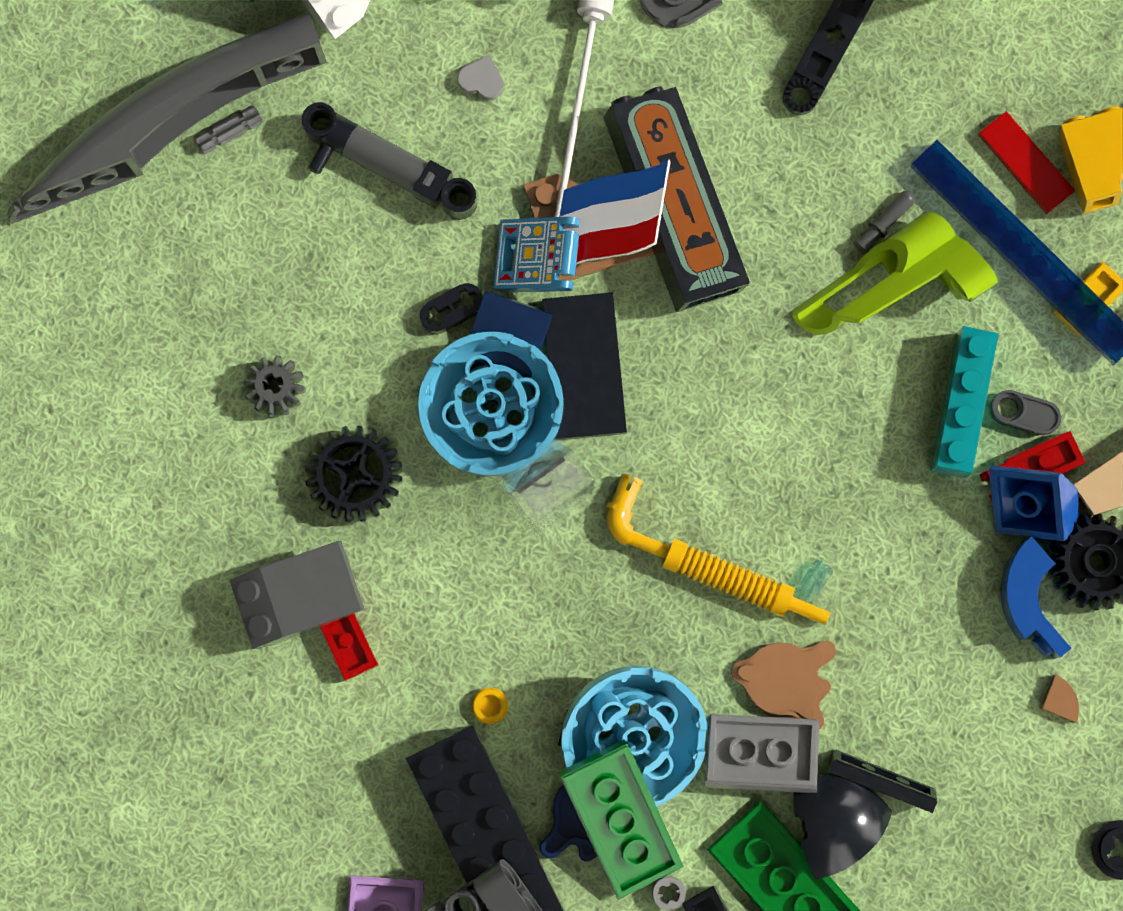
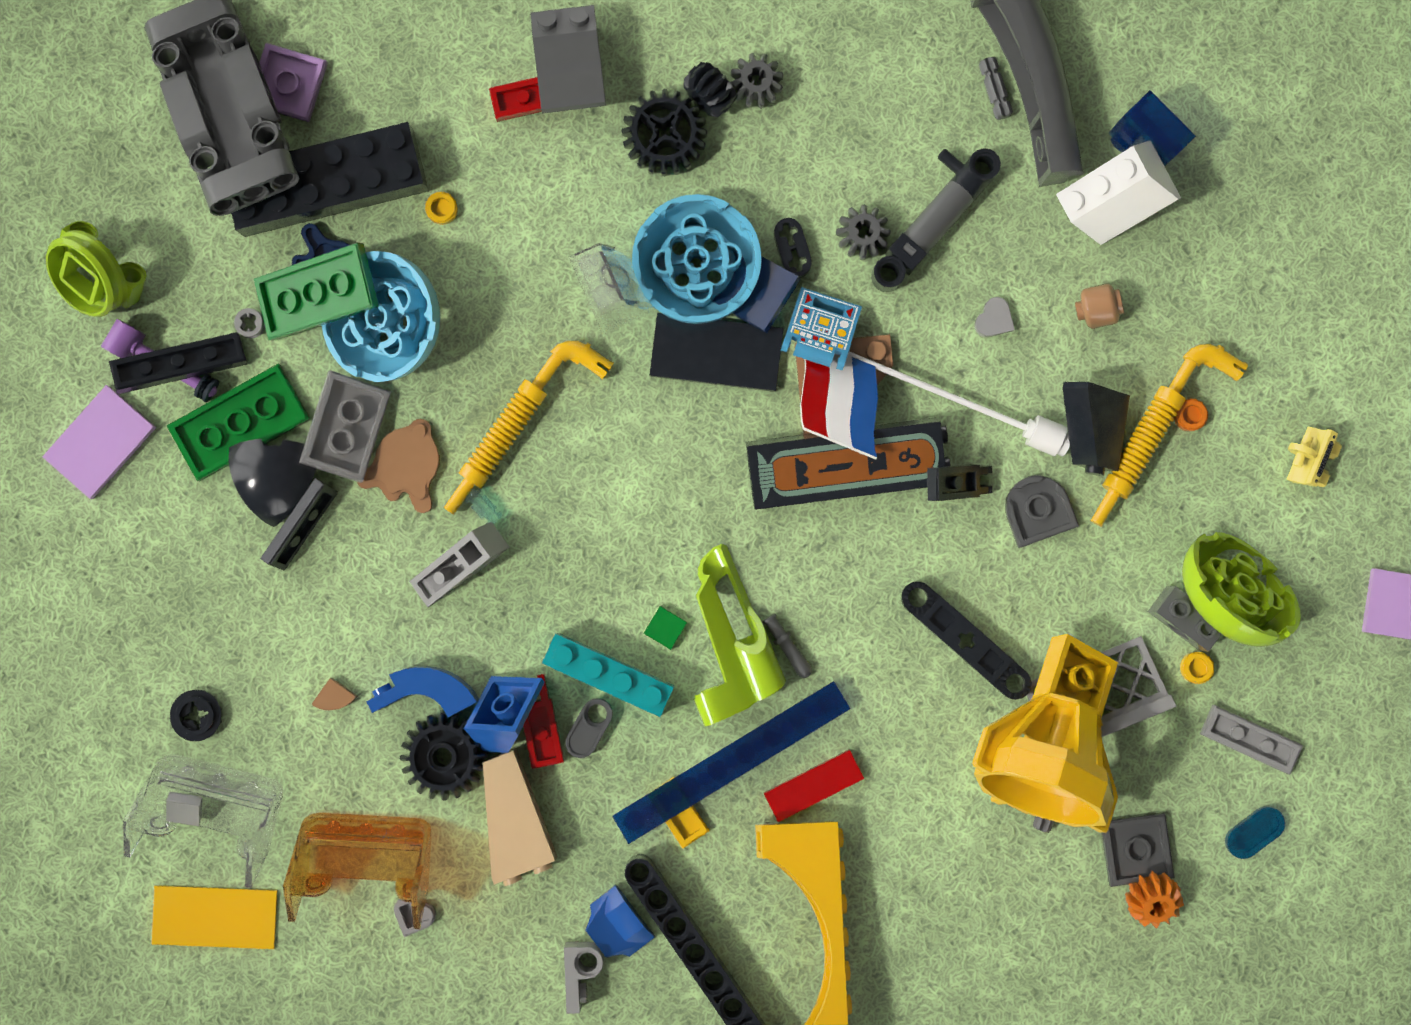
camera: 105 degrees right, 5 degrees up
(296, 433) = (709, 89): none -> black gear
(412, 224) = (851, 236): none -> dark grey gear
(671, 74) = (957, 482): none -> black hinge
(882, 592) = (459, 563): none -> light grey slope
(897, 355) = (665, 627): none -> green tile

